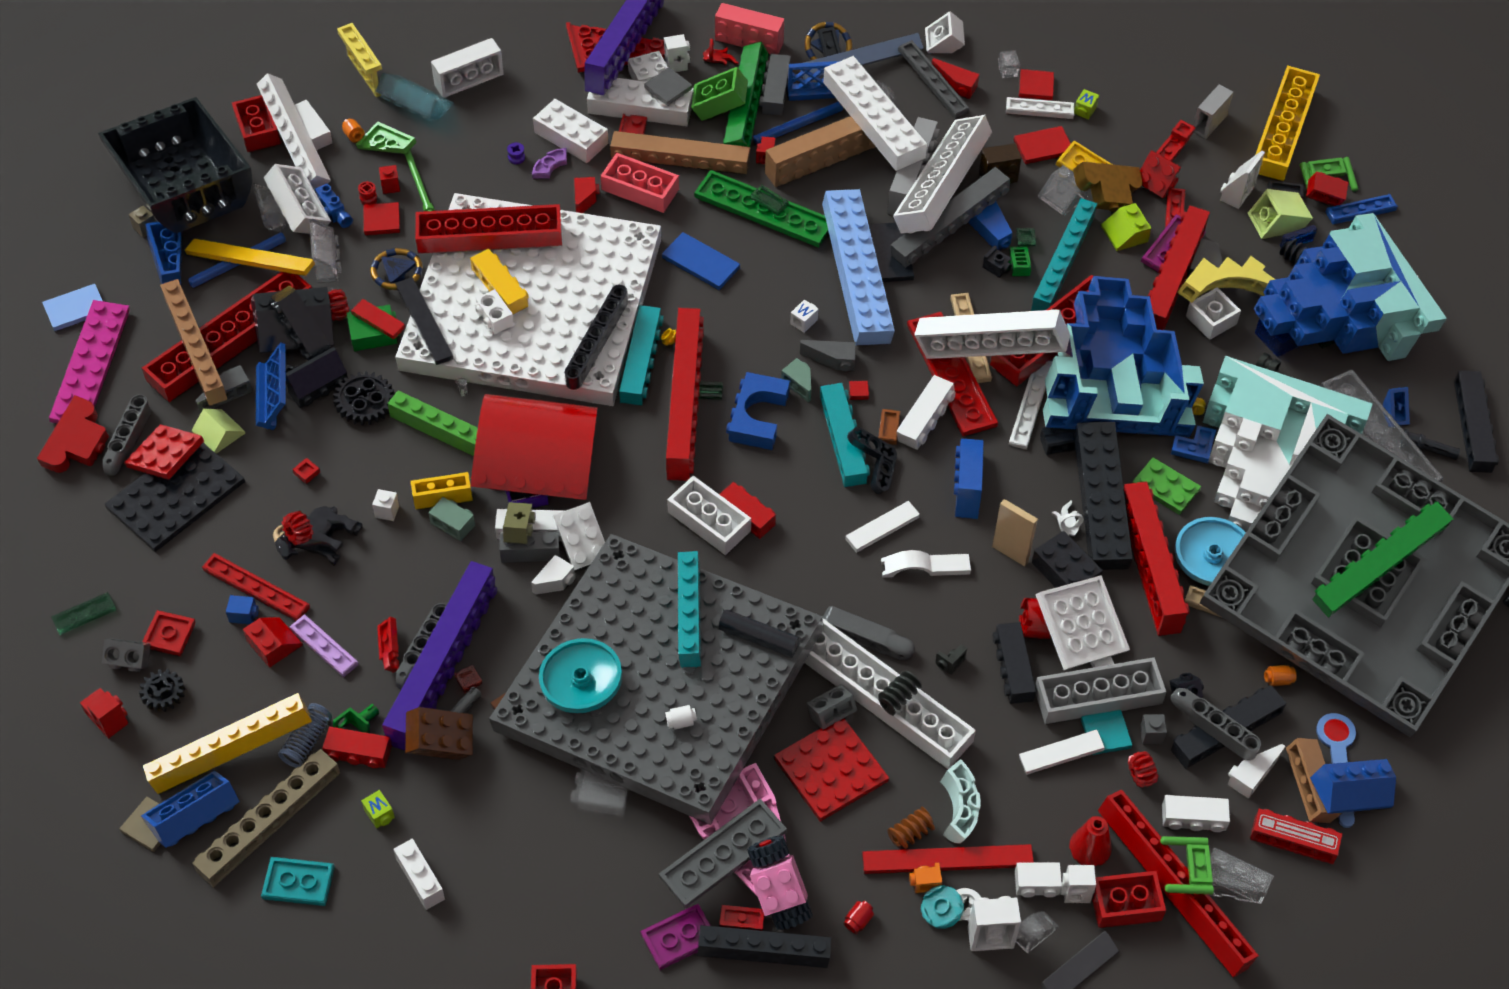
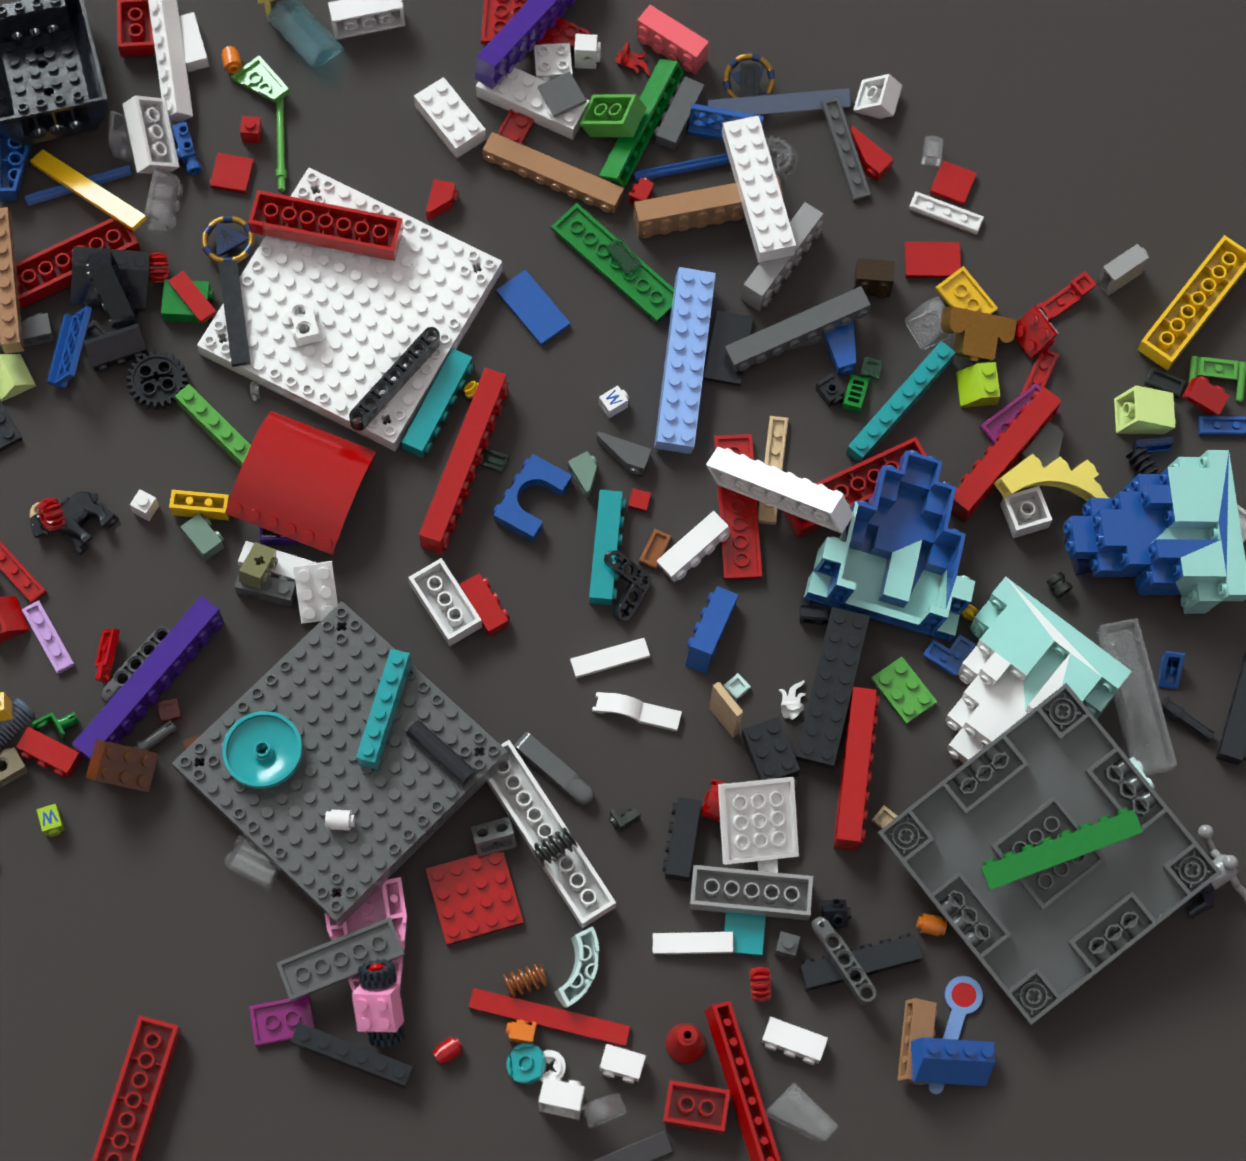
camera: 15 degrees right, 15 degrees up
(306, 470) = (81, 445): red plate -> none
(367, 193) = (228, 144): red wheel -> none
(419, 874) = (69, 895): white brick -> none
(497, 277) = (319, 289): yellow brick -> none
(516, 153) = (387, 134): dark purple wheel -> none
(552, 160) = (418, 148): medium lavender tile -> none
(553, 576) = (279, 626): white slope -> none
(640, 182) = (499, 201): coral brick -> none
(741, 918) = (340, 1020): red plate -> none
(942, 175) = (806, 278): white brick -> none
(1029, 408) = (799, 569): white tile -> none
(1078, 884) = (655, 1080): white brick -> none
(1086, 104) = (995, 223): lime brick -> none
(1198, 865) = (769, 1098): bright green plate -> none
(1206, 546) = (910, 761): medium azure dish -> none
(1242, 182) = (1117, 365): white slope -> none
(1252, 772) = (861, 1017): white slope -> none
(1296, 836) = (879, 1090): red brick -> none

